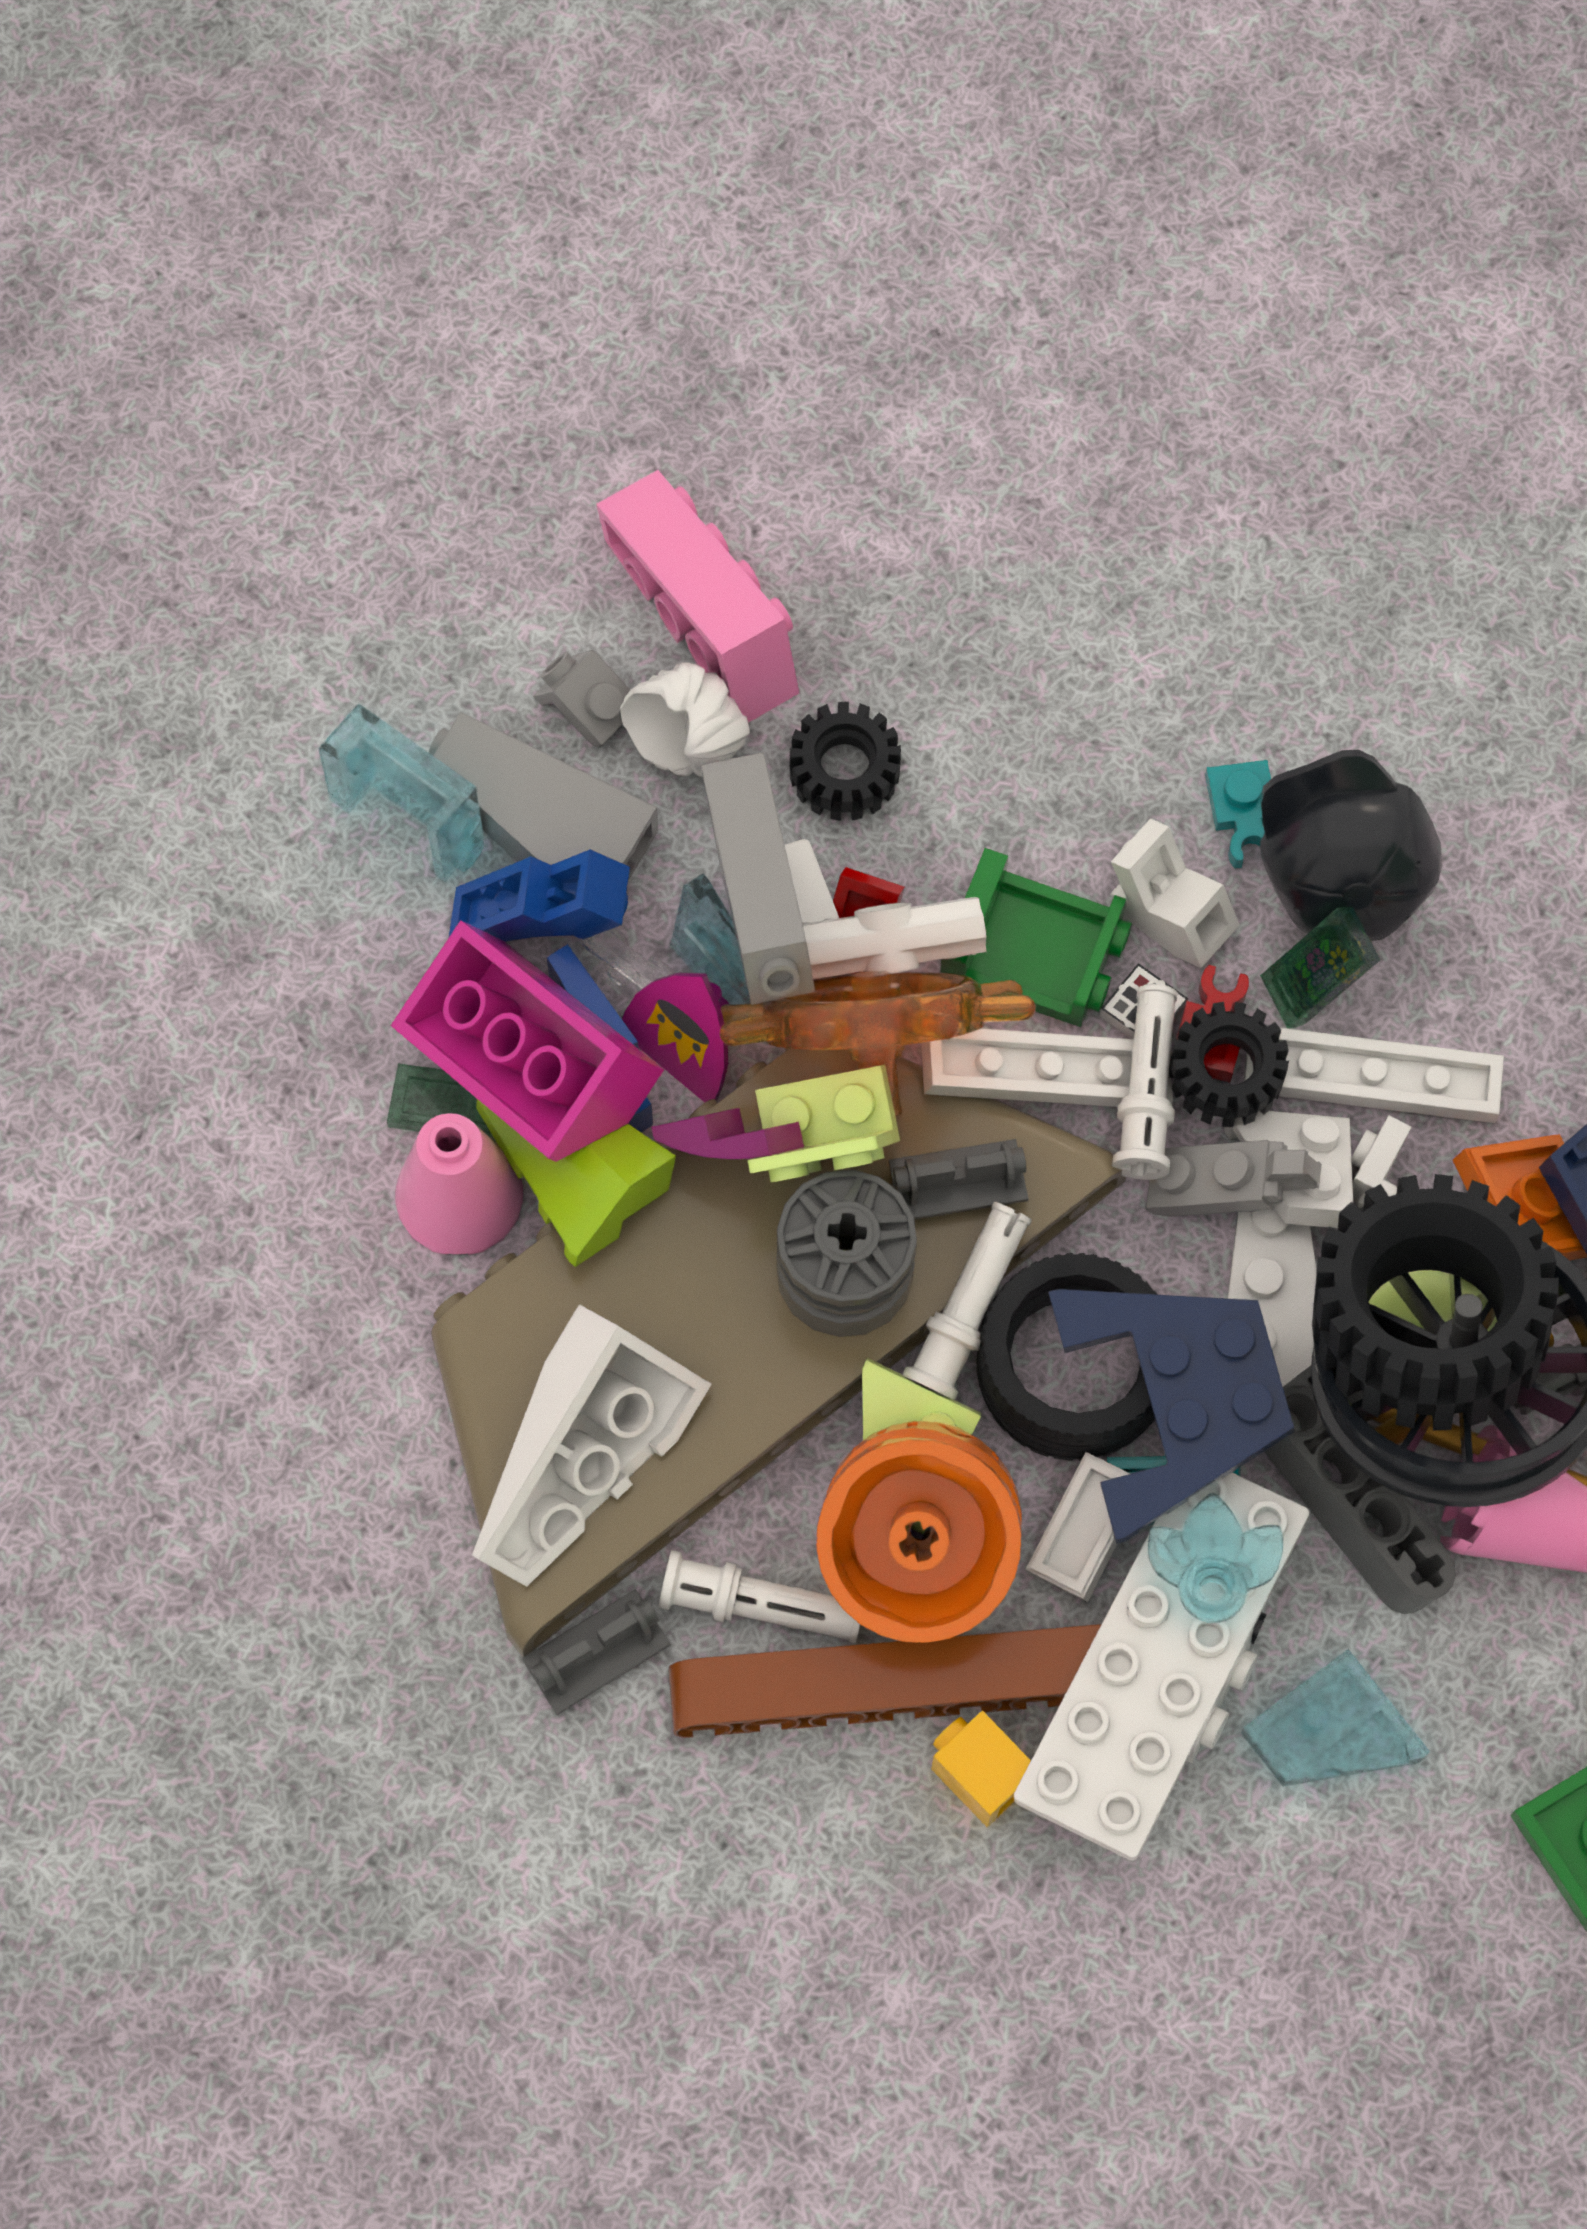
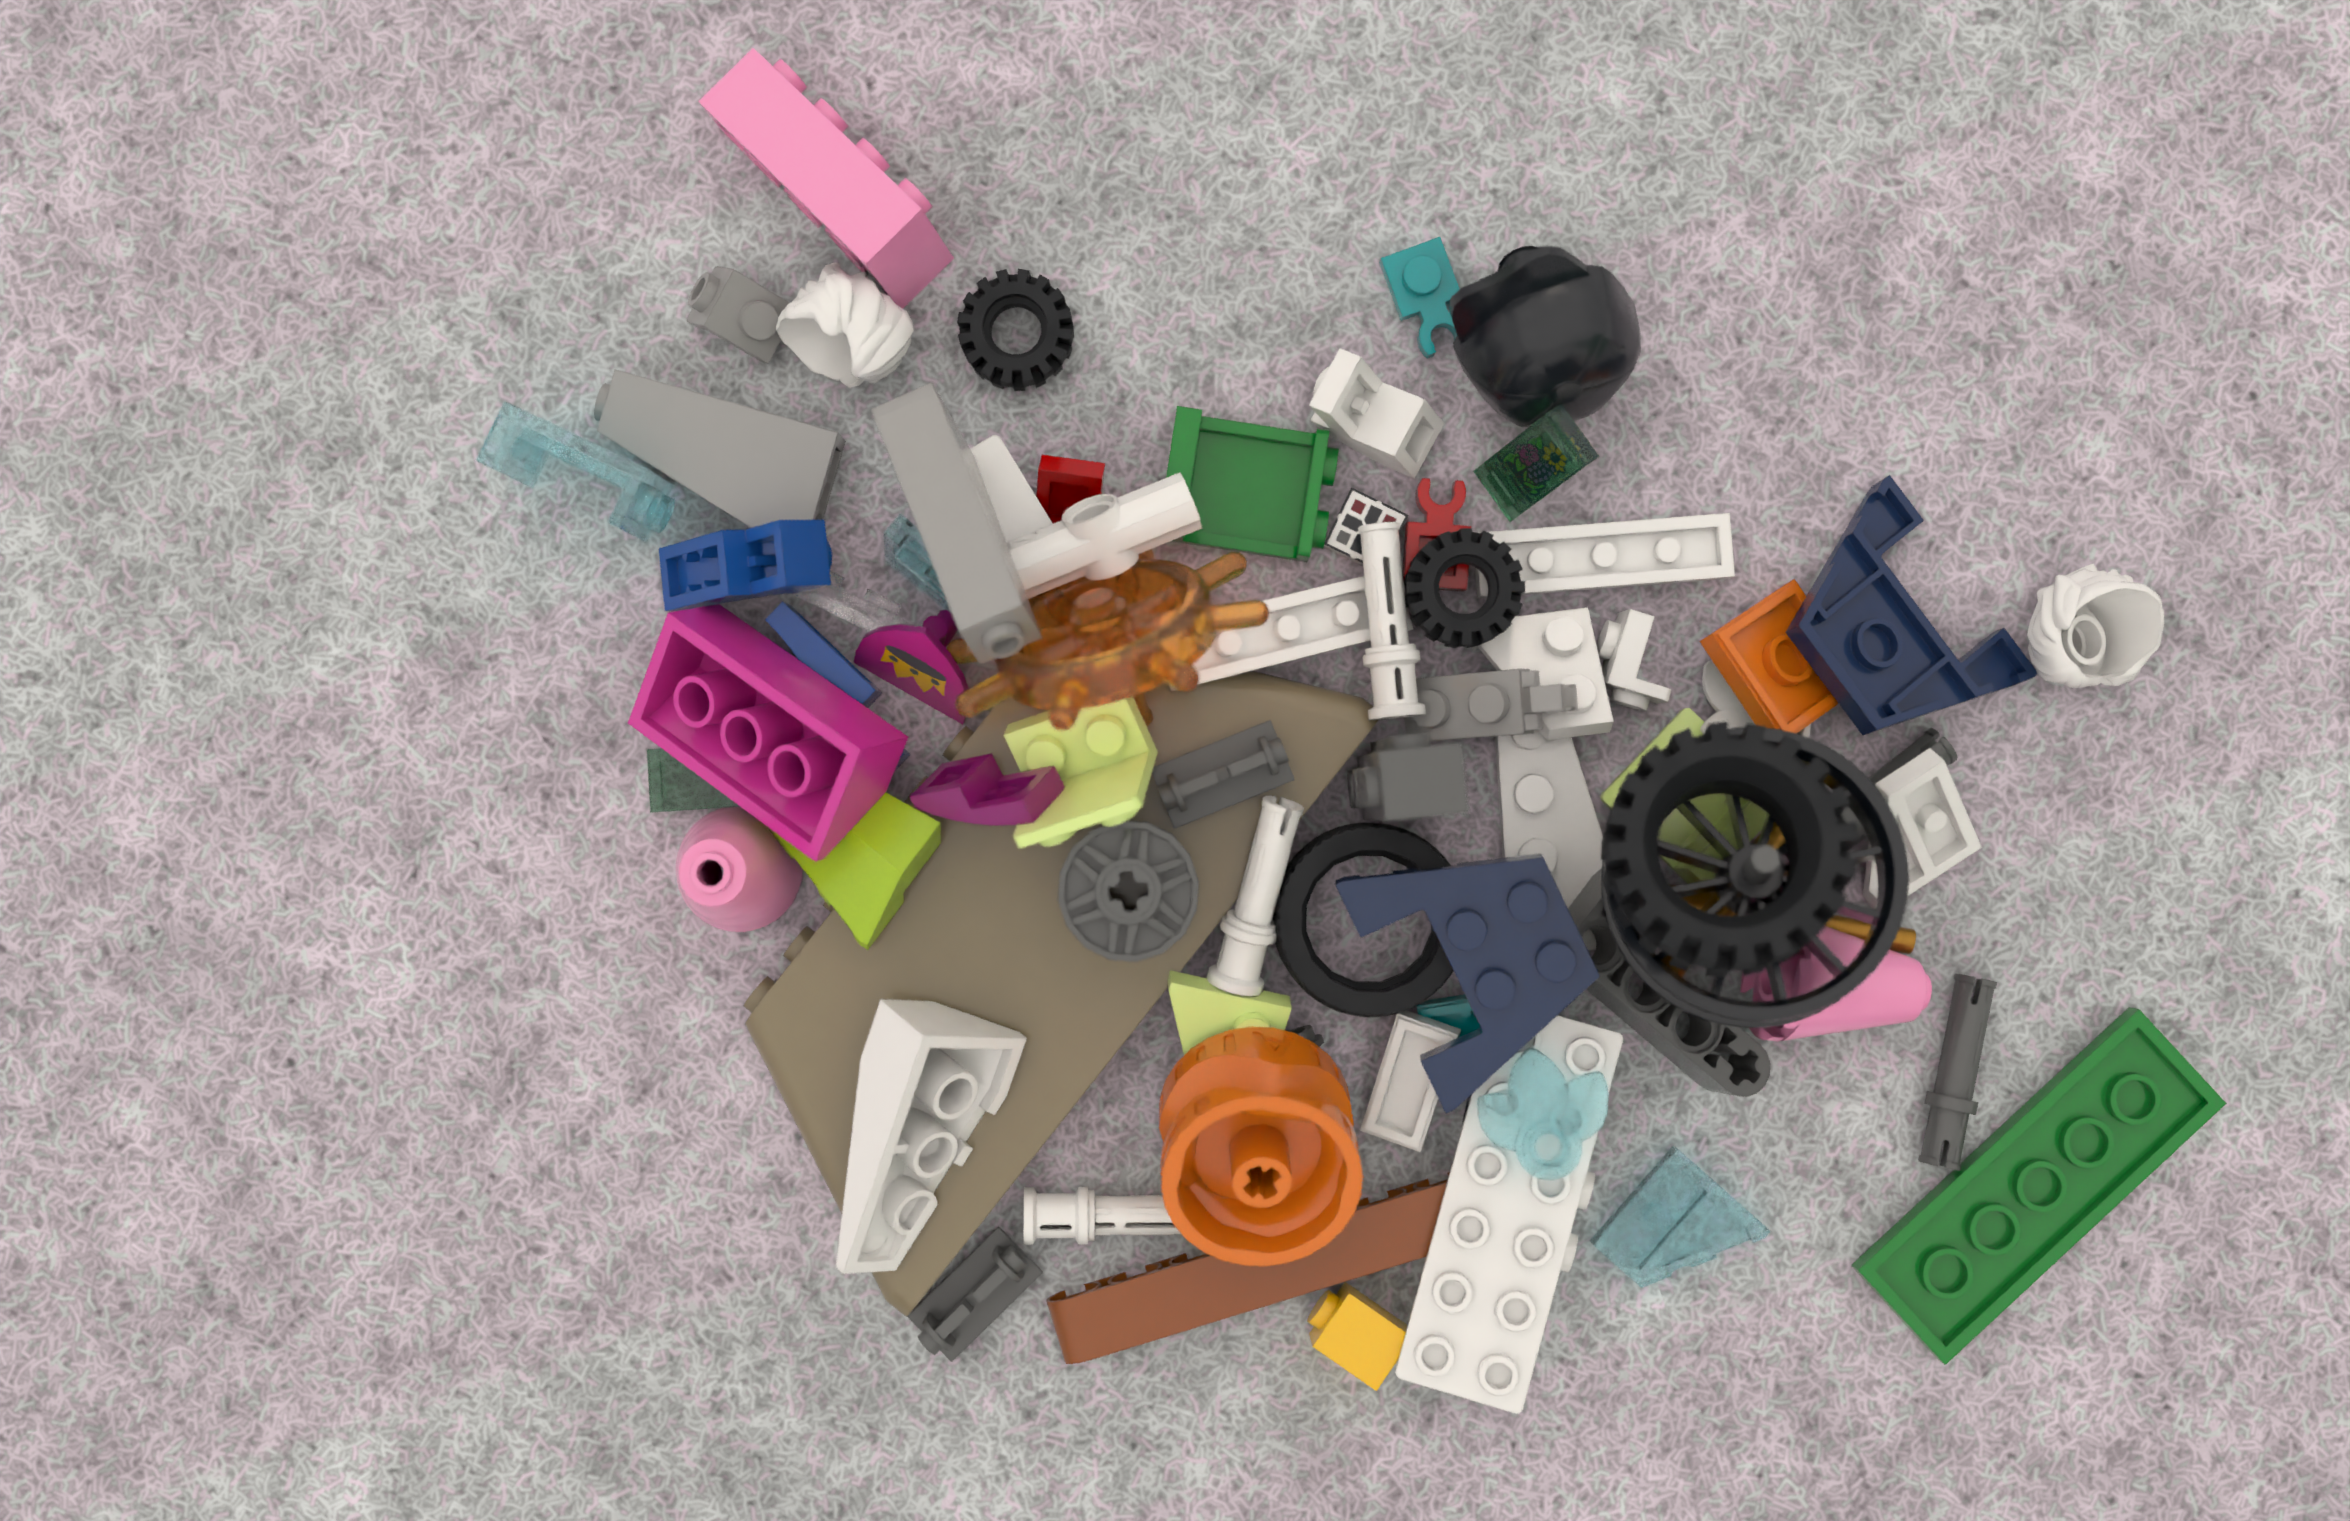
camera: 15 degrees left, 20 degrees up
(1138, 1199) = (1408, 779): none -> dark grey brick

